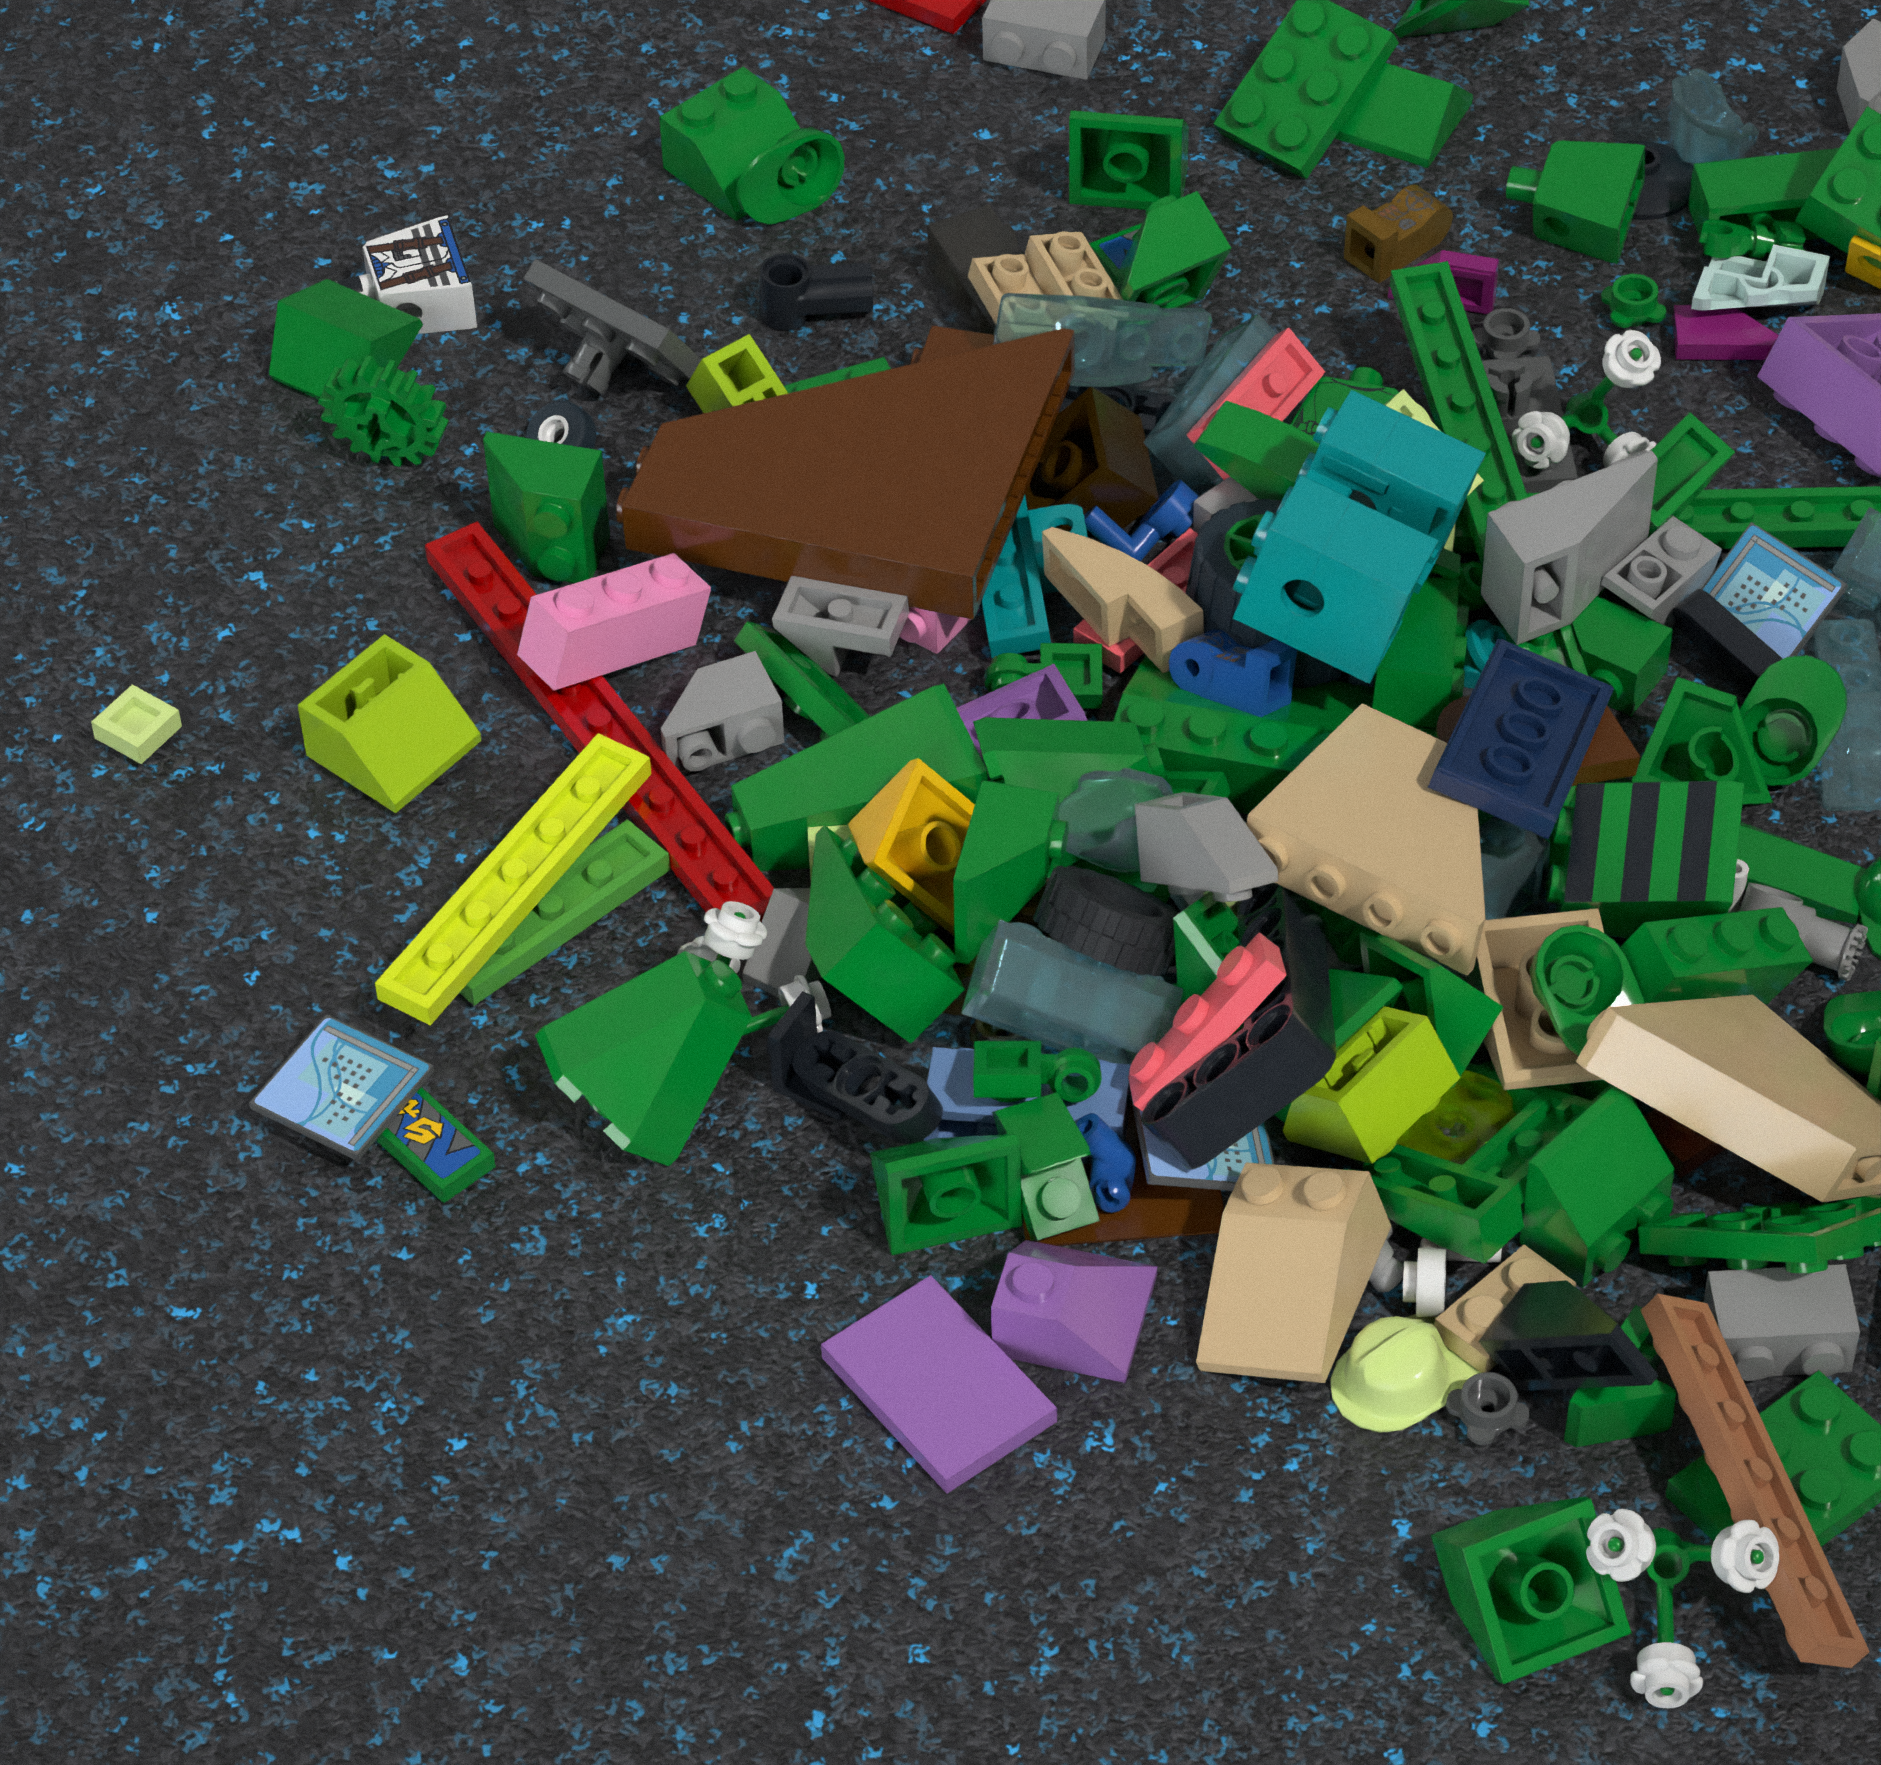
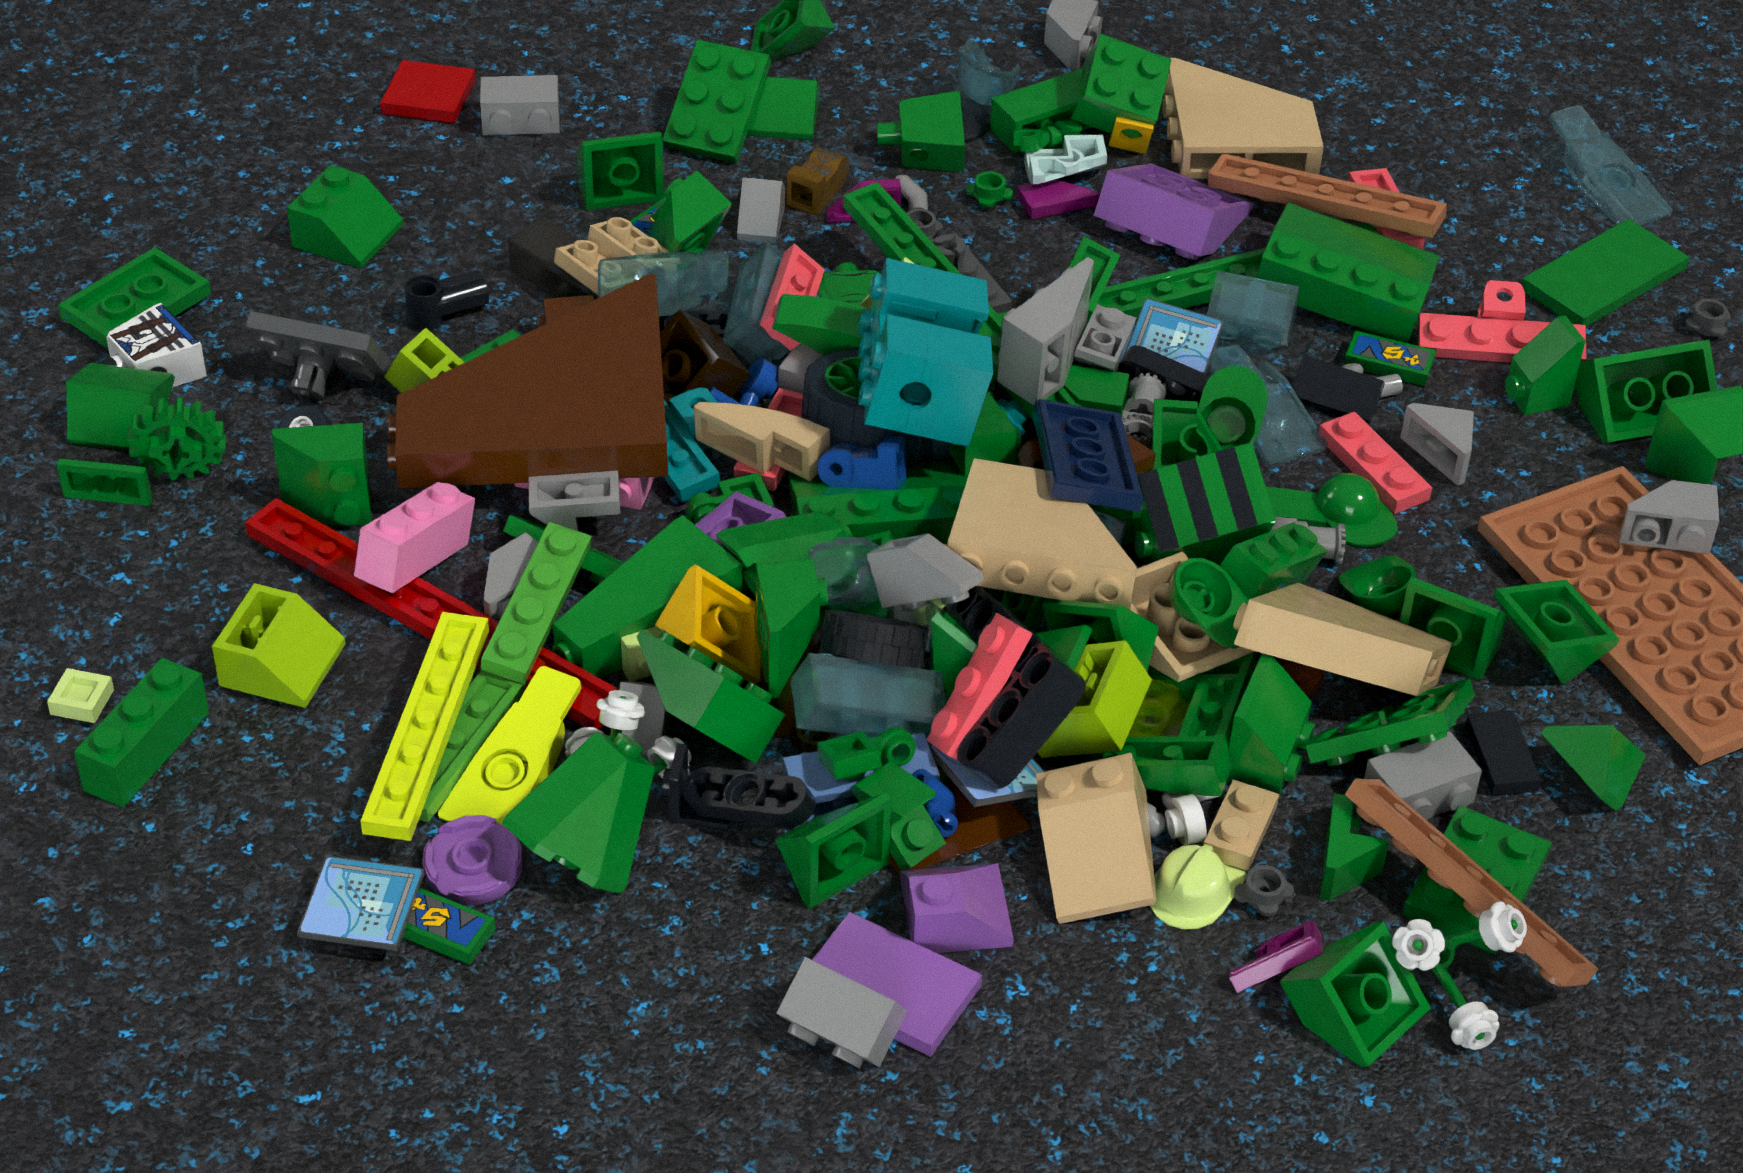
camera: 25 degrees left, 5 degrees down
(183, 792) = (141, 732): none -> green brick
(284, 444) = (104, 482): none -> green slope
(451, 180) = (132, 290): none -> green plate
(498, 1072) = (473, 860): none -> medium lavender tile
(616, 941) = (517, 751): none -> neon yellow piece
(722, 751) = (536, 603): none -> bright green plate
(791, 176) = (394, 228): green cap -> none
(847, 1404) = (842, 1013): none -> light grey brick
(1296, 260) = (761, 210): none -> light grey slope
(1456, 1500) = (1279, 955): none -> magenta tile
(1518, 275) = (914, 194): none -> light grey arm
(1545, 436) = (1029, 214): white plant -> none
(1562, 1341) = (1309, 826): black slope -> none
(1691, 660) = (1139, 408): none -> light grey connector

